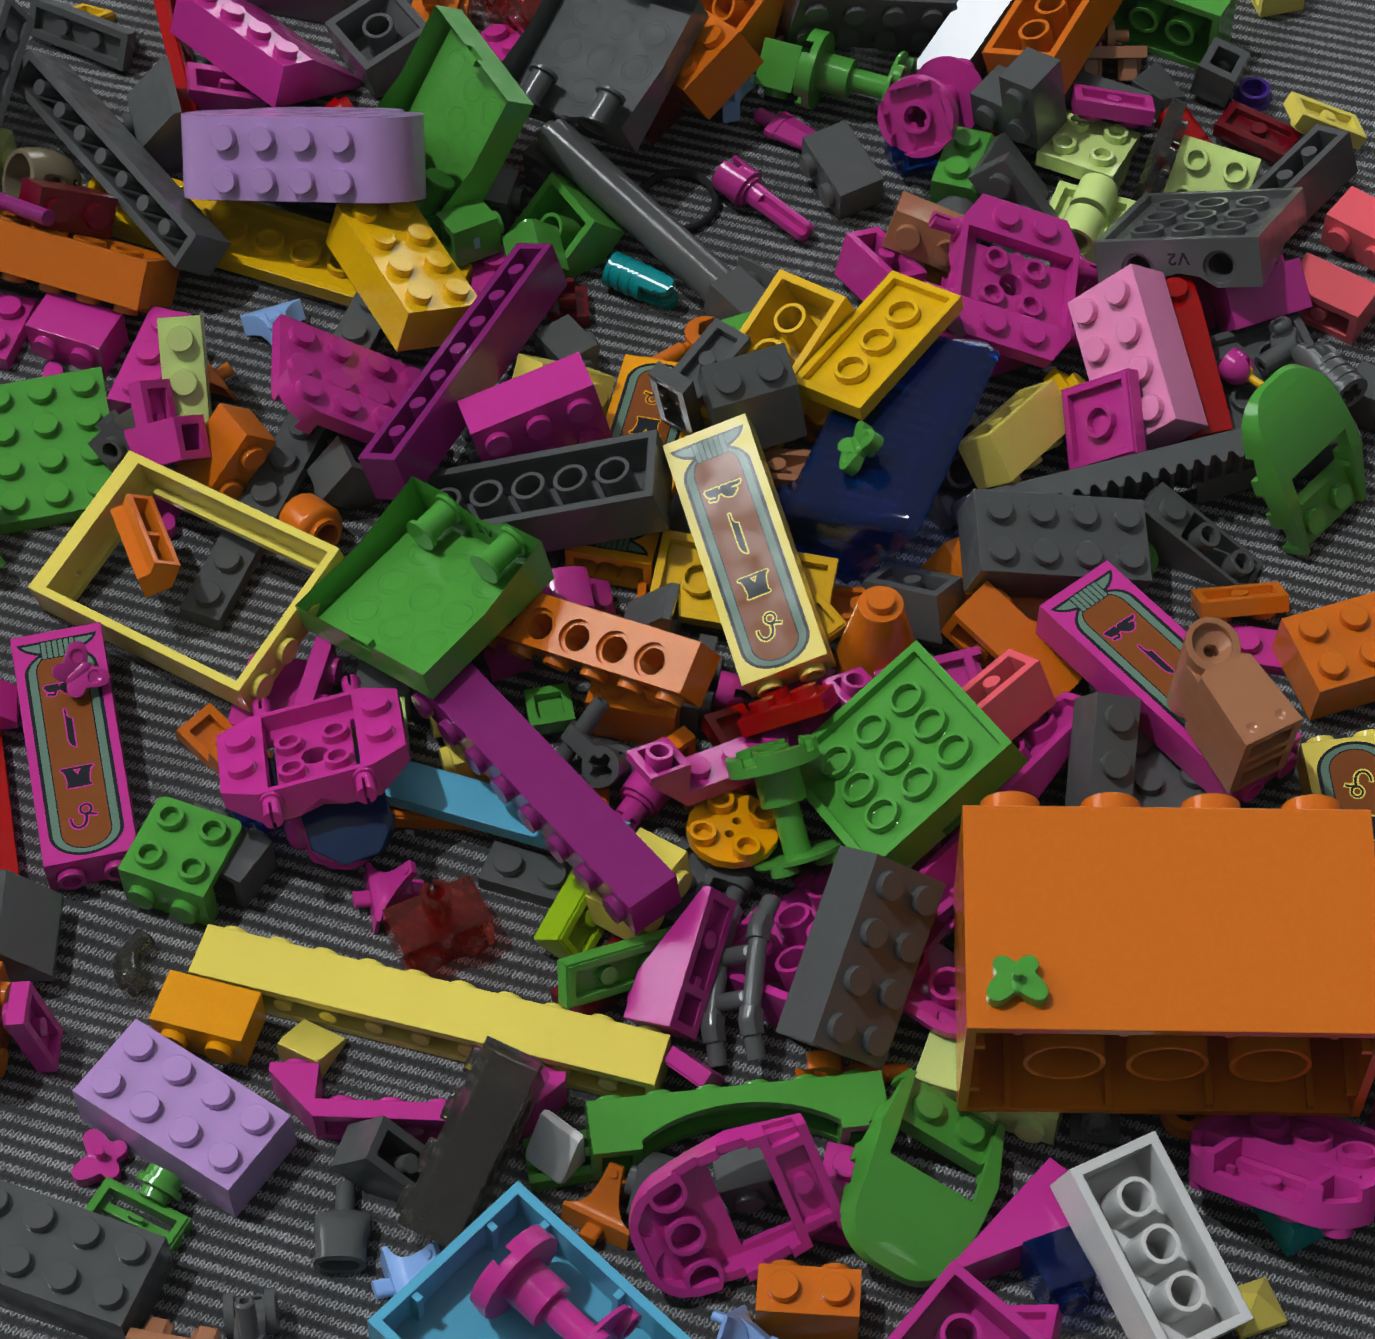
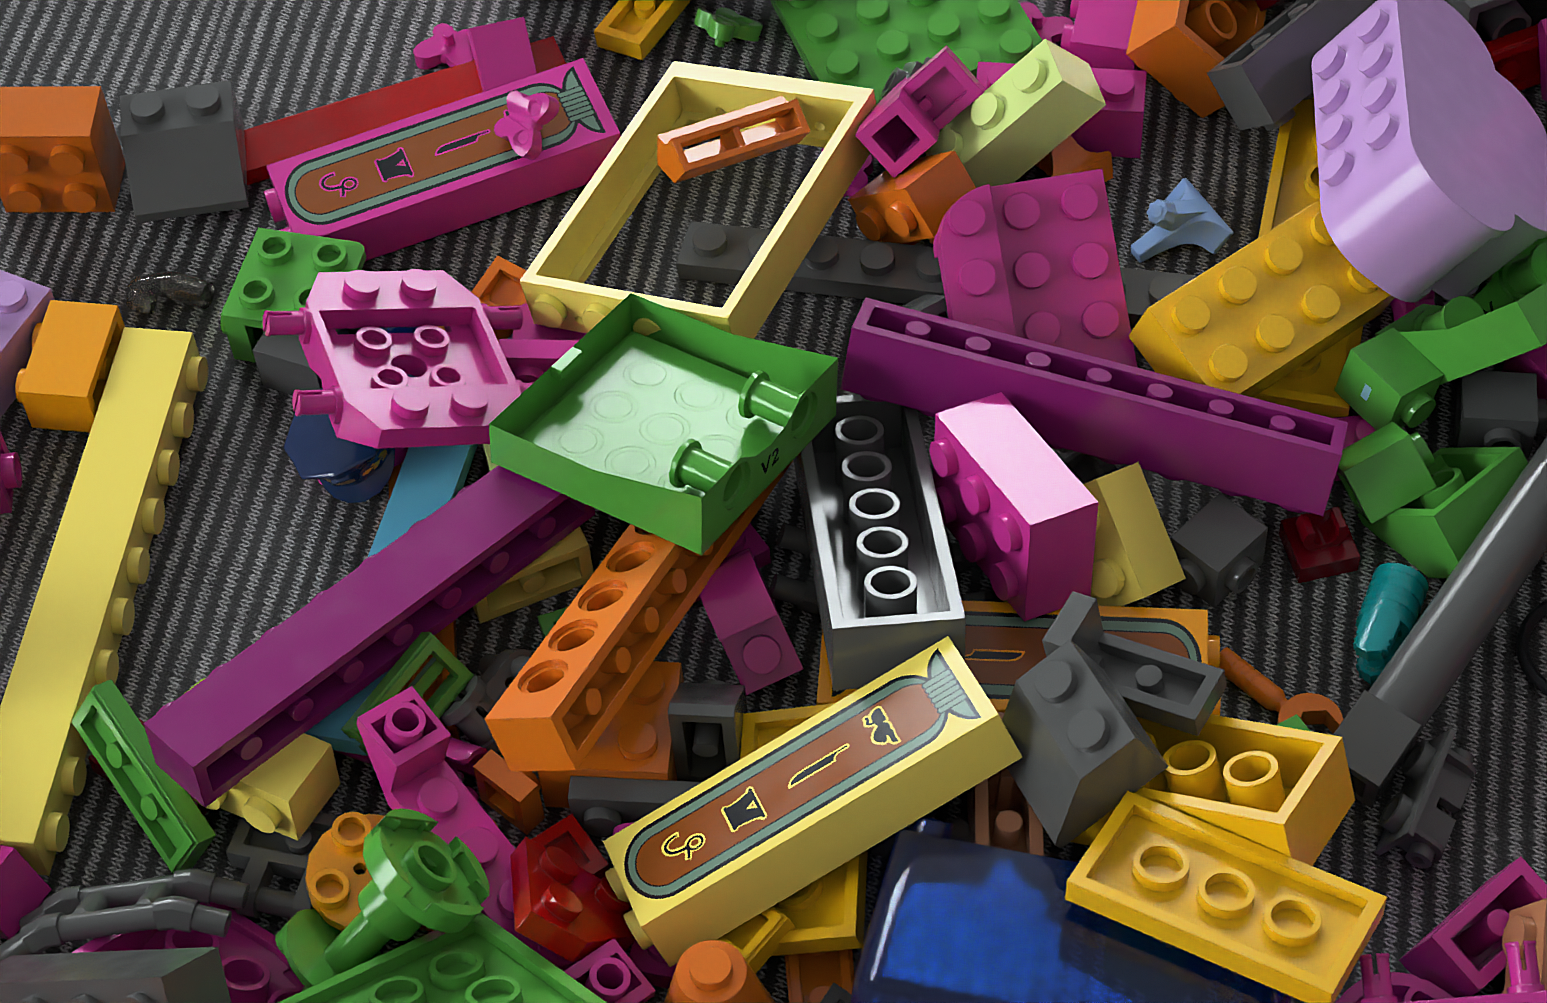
camera: 85 degrees right, 0 degrees up
(33, 1026) = (47, 205): dark pink plate -> none
(312, 1044) = (44, 478): light yellow slope -> none
(314, 517) = (828, 316): orange head -> none
(386, 890) = (274, 510): dark pink piece -> none
(439, 925) = (218, 574): clear red brick -> none
(611, 788) = (405, 668): none -> bright green tile
(680, 971) = (121, 839): dark pink slope -> none
(856, 448) = (994, 893): bright green piece -> none

